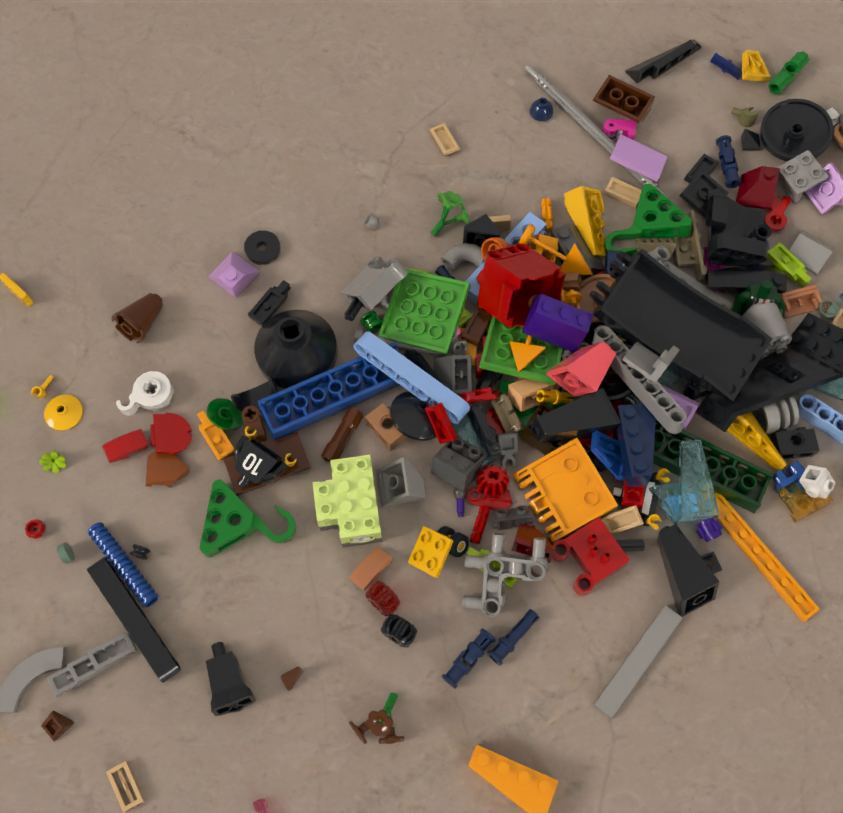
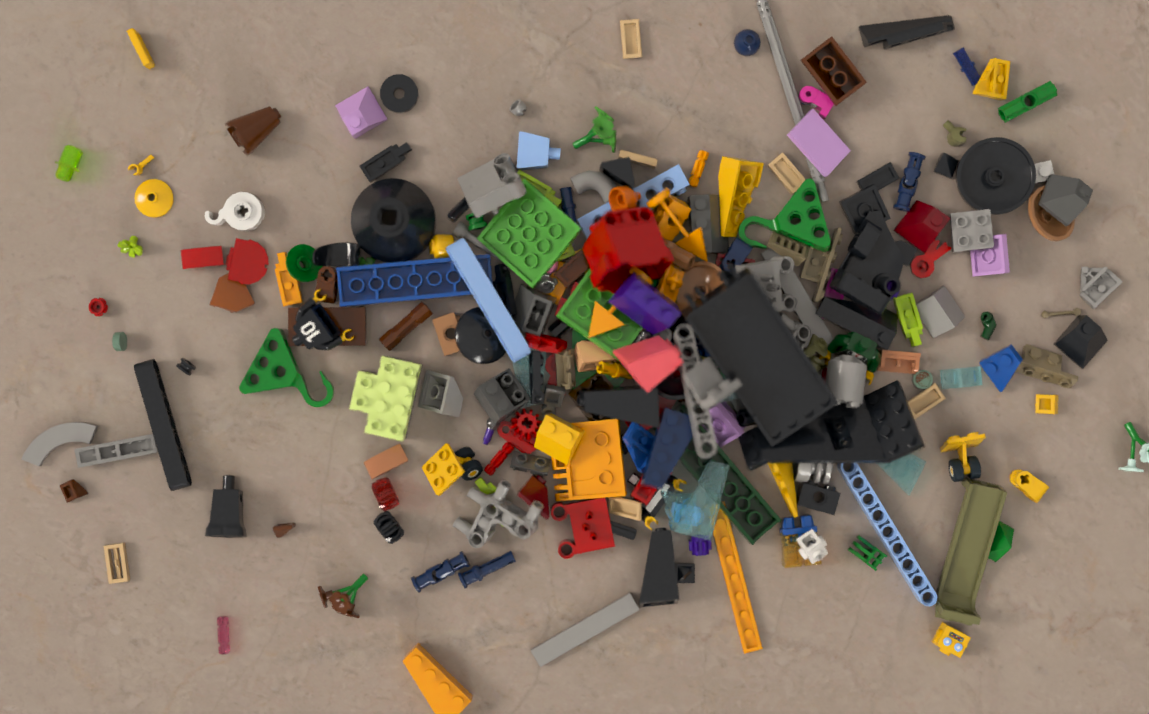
camera: 20 degrees right, 20 degrees up
(123, 564) = (167, 371): blue piece -> none
(346, 352) = (438, 244): none -> yellow head
(401, 246) = (534, 152): none -> light blue torso
(441, 423) = (498, 356): red tile -> none
(529, 478) = (558, 438): none -> yellow slope

